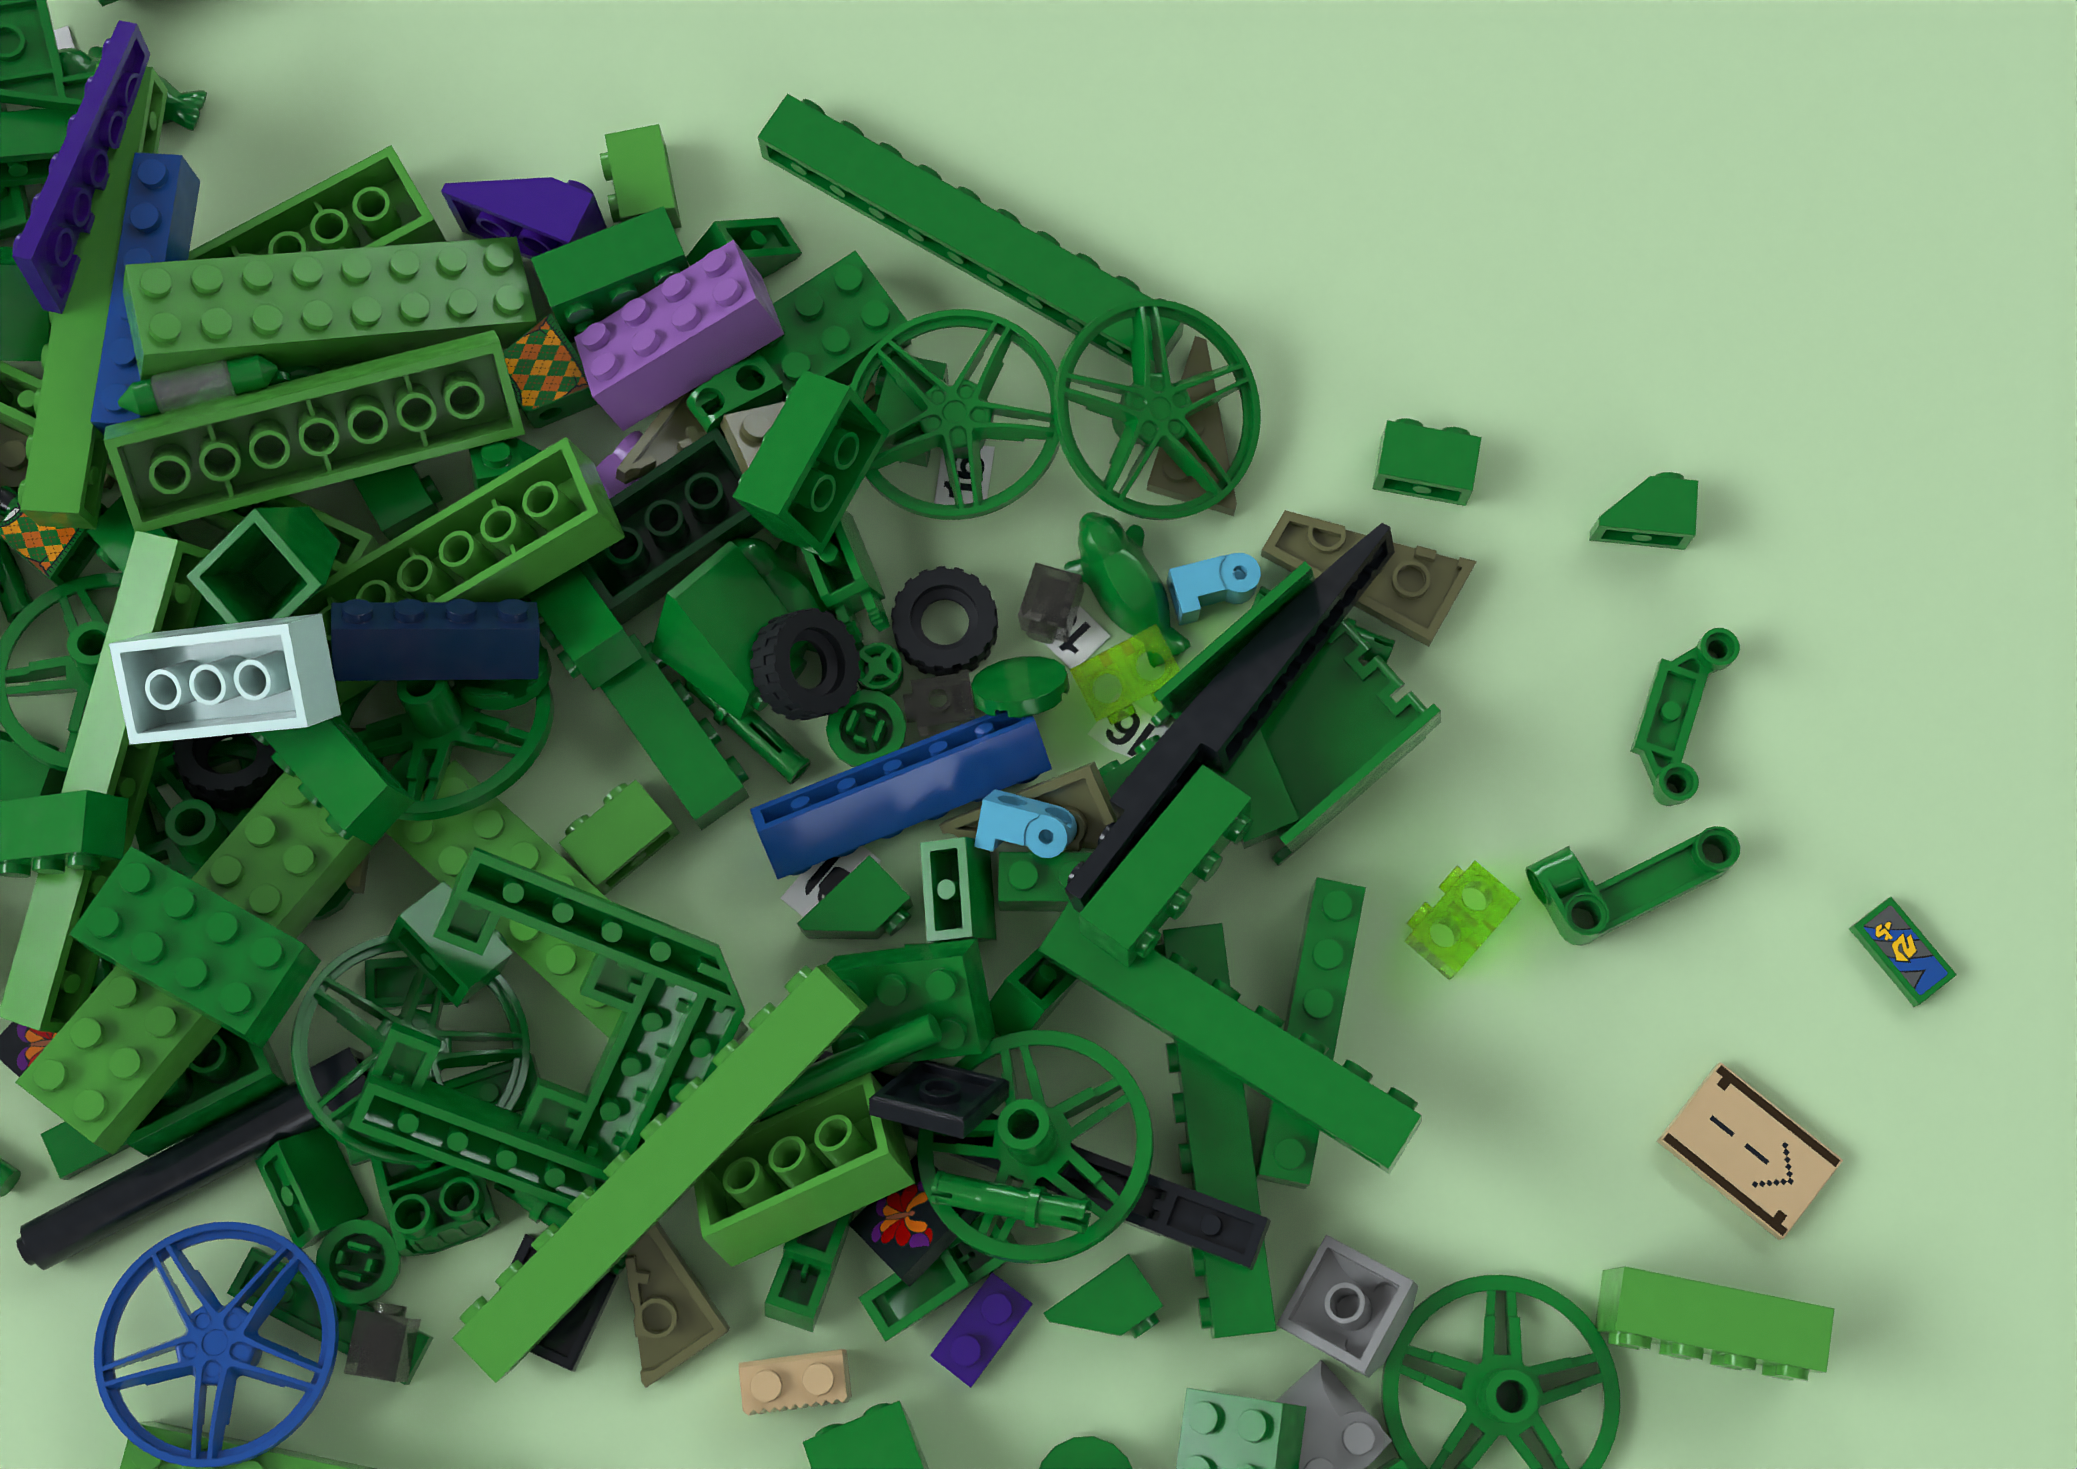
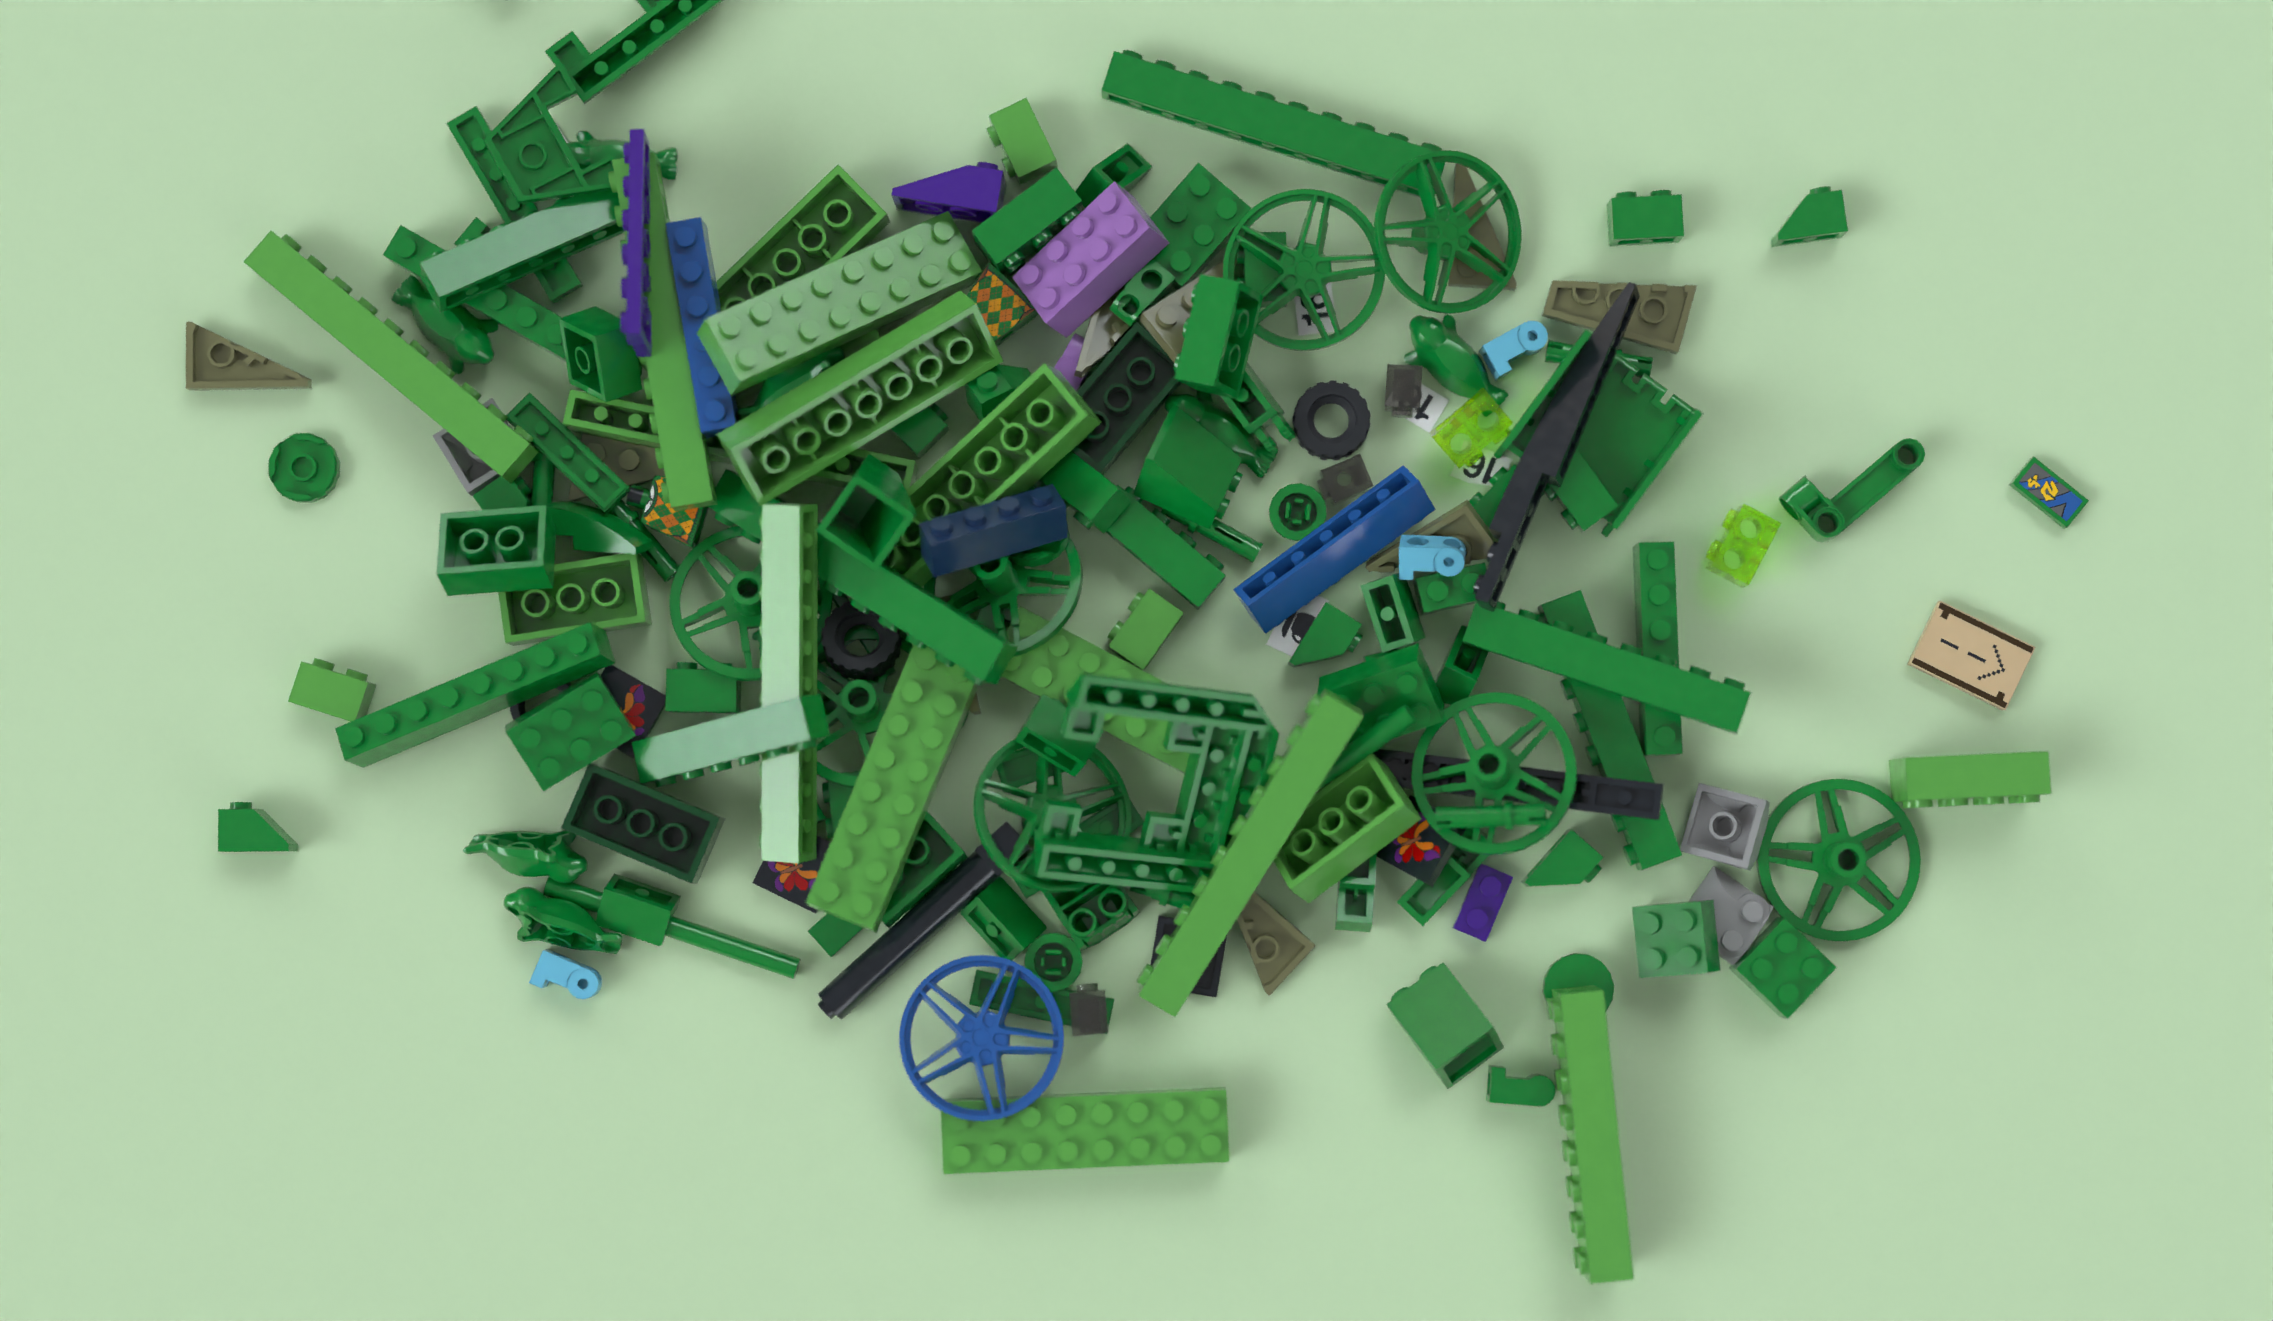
camera: 10 degrees left, 10 degrees up
(196, 947) = (903, 783): green brick -> none
(198, 385) = (772, 388): piece -> none
(225, 679) = (869, 597): light aqua brick -> none
(774, 672) = (1227, 482): black tyre -> none
(795, 1382) = (1369, 966): tan brick -> none
(877, 661) = (1296, 461): green wheel -> none
(939, 1098) = (1425, 759): black tile -> none
(1020, 686) = (1399, 455): green tile -> none
(1166, 866) = (1538, 562): green brick -> none
(1672, 711) = (1856, 362): green plate -> none

